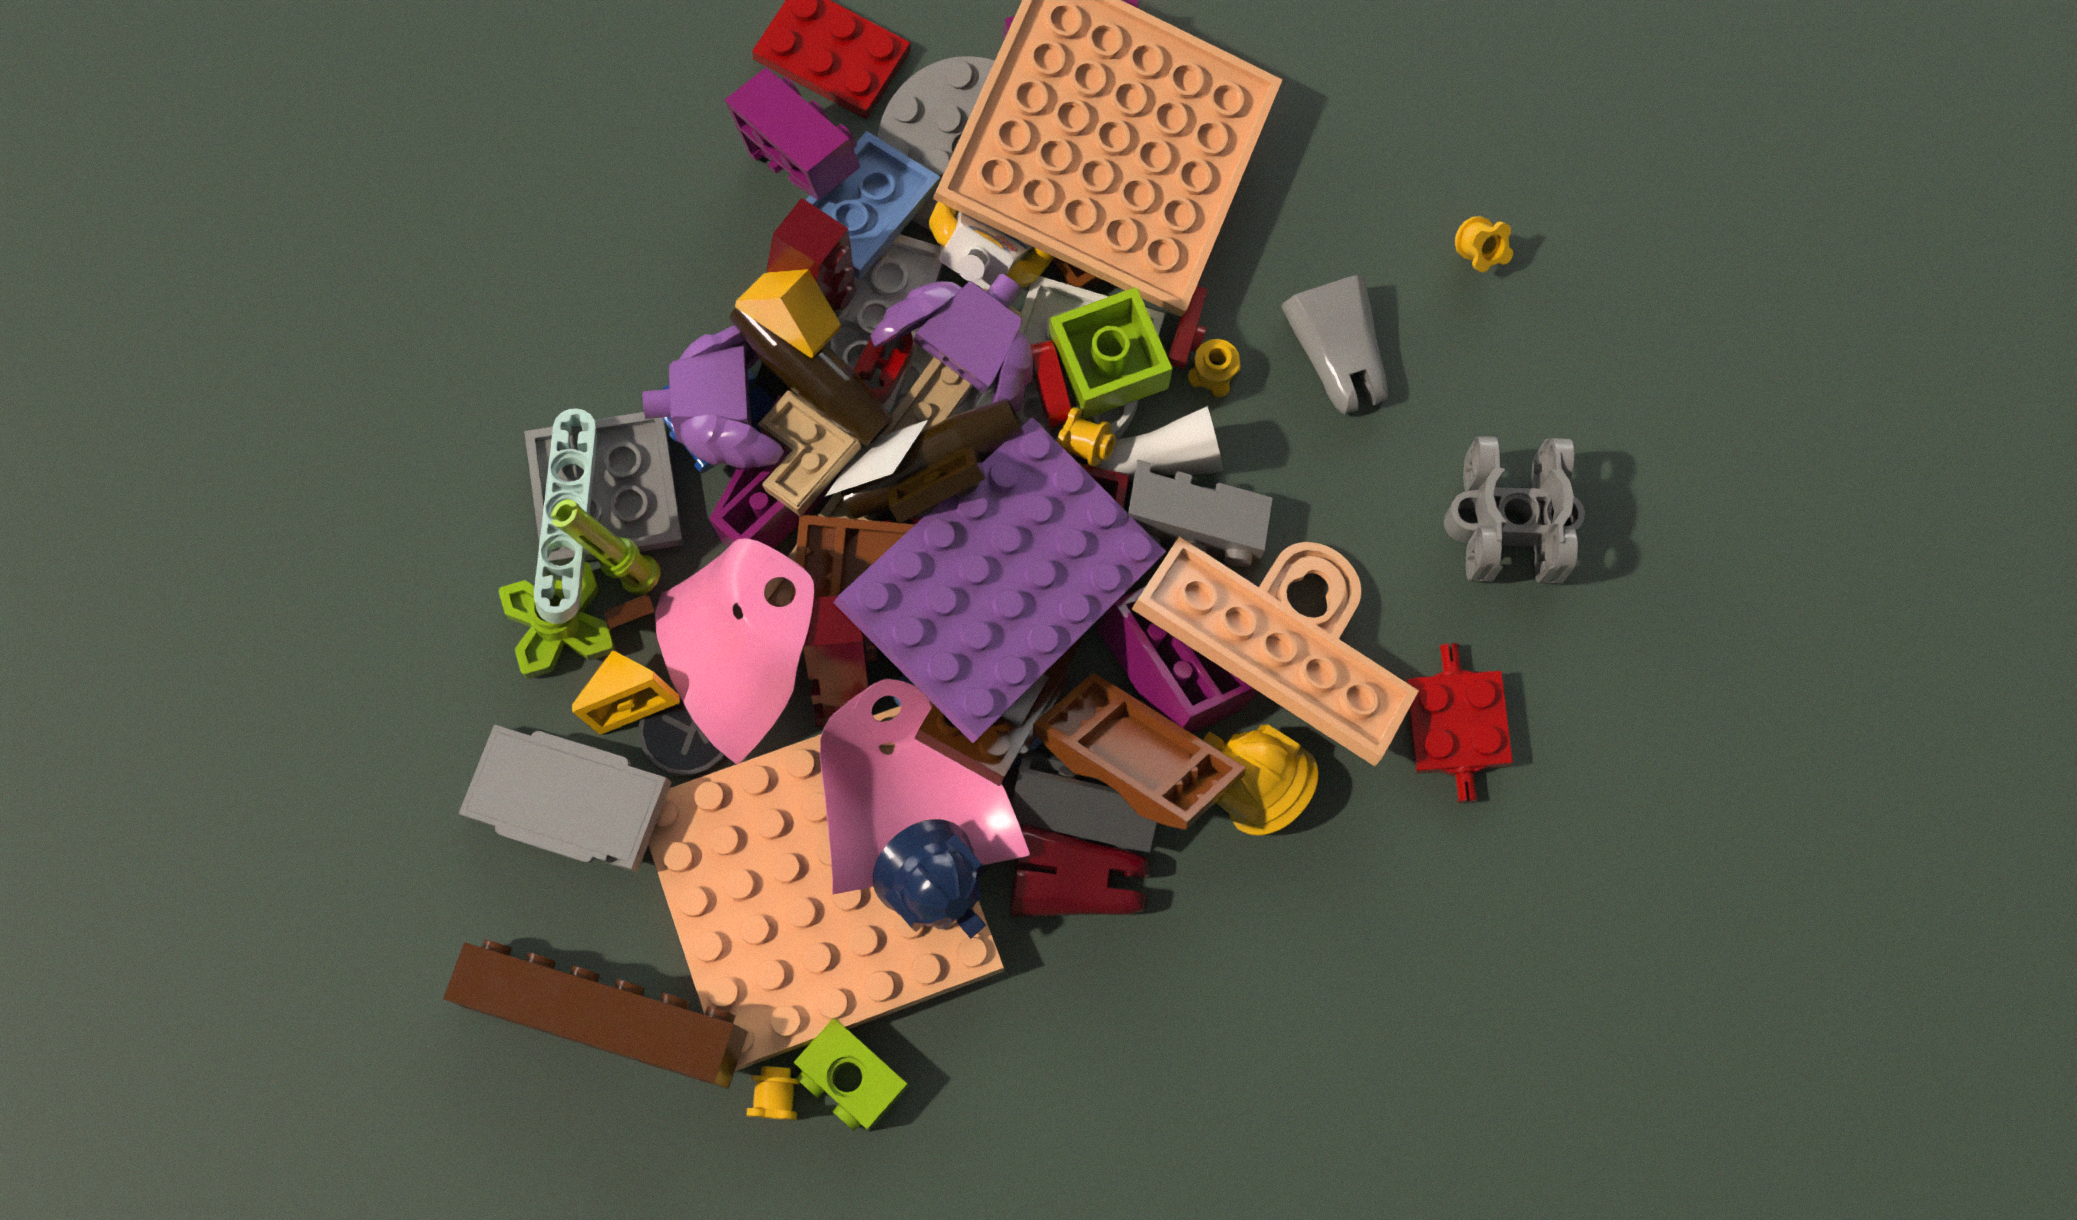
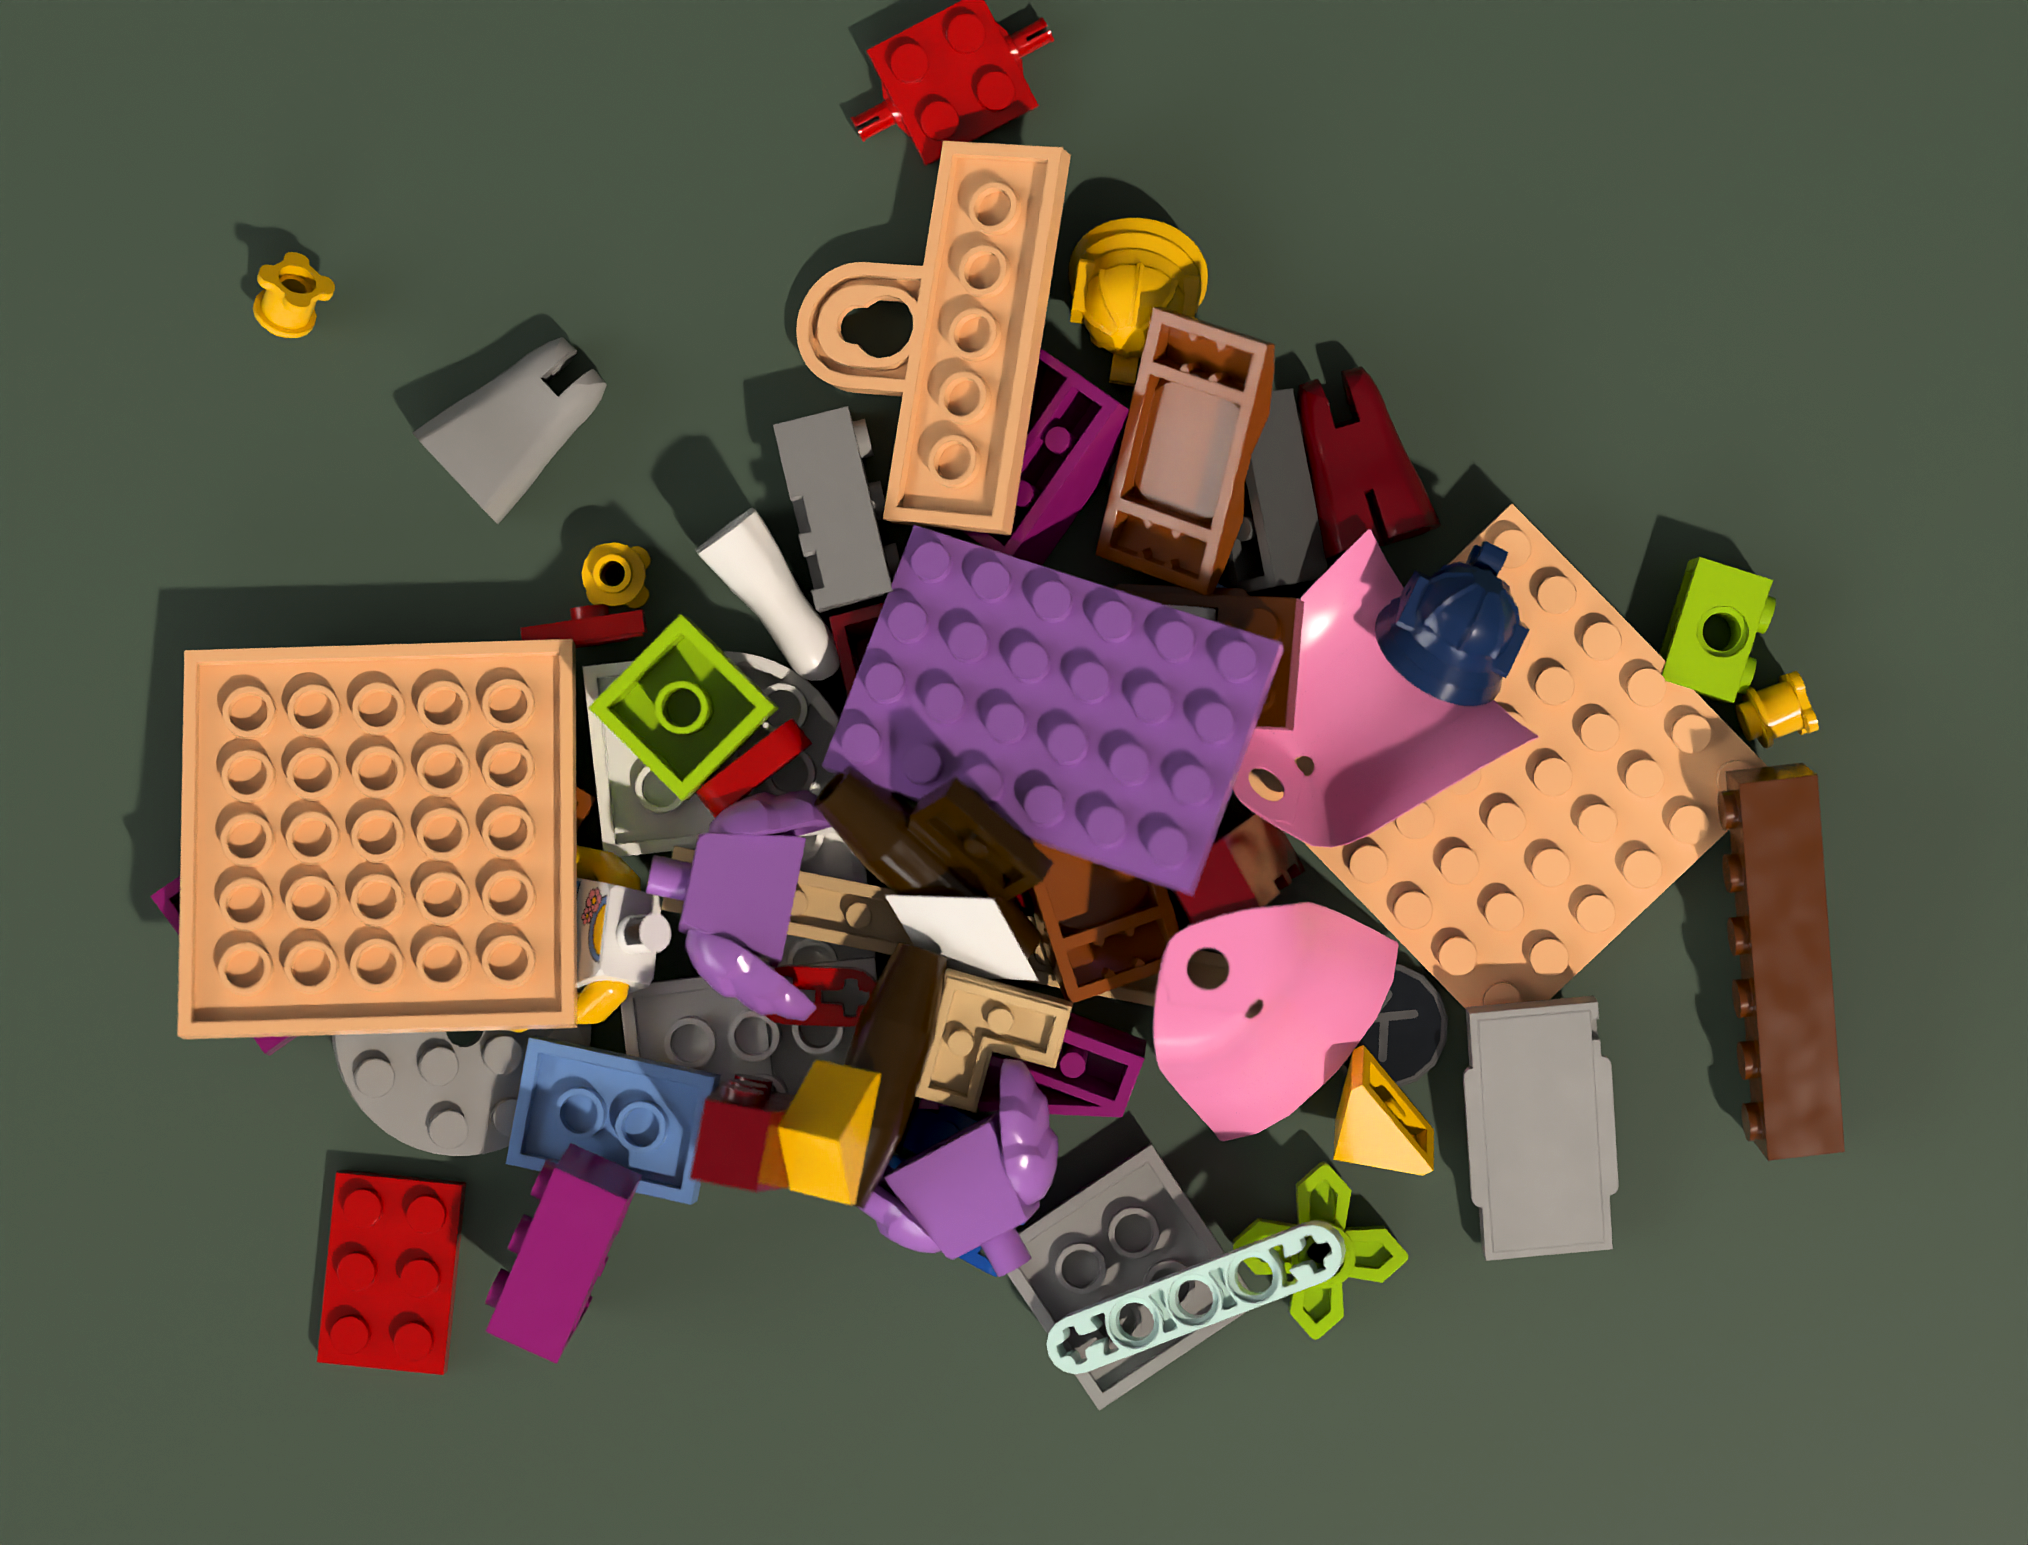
camera: 110 degrees left, 15 degrees up
(617, 555) = (1217, 1209): lime pin -> none
(629, 610) = (1270, 1165): reddish brown tile -> none
(1087, 438) = (811, 688): yellow brick -> none
(1551, 491) = (582, 84): light grey piece -> none

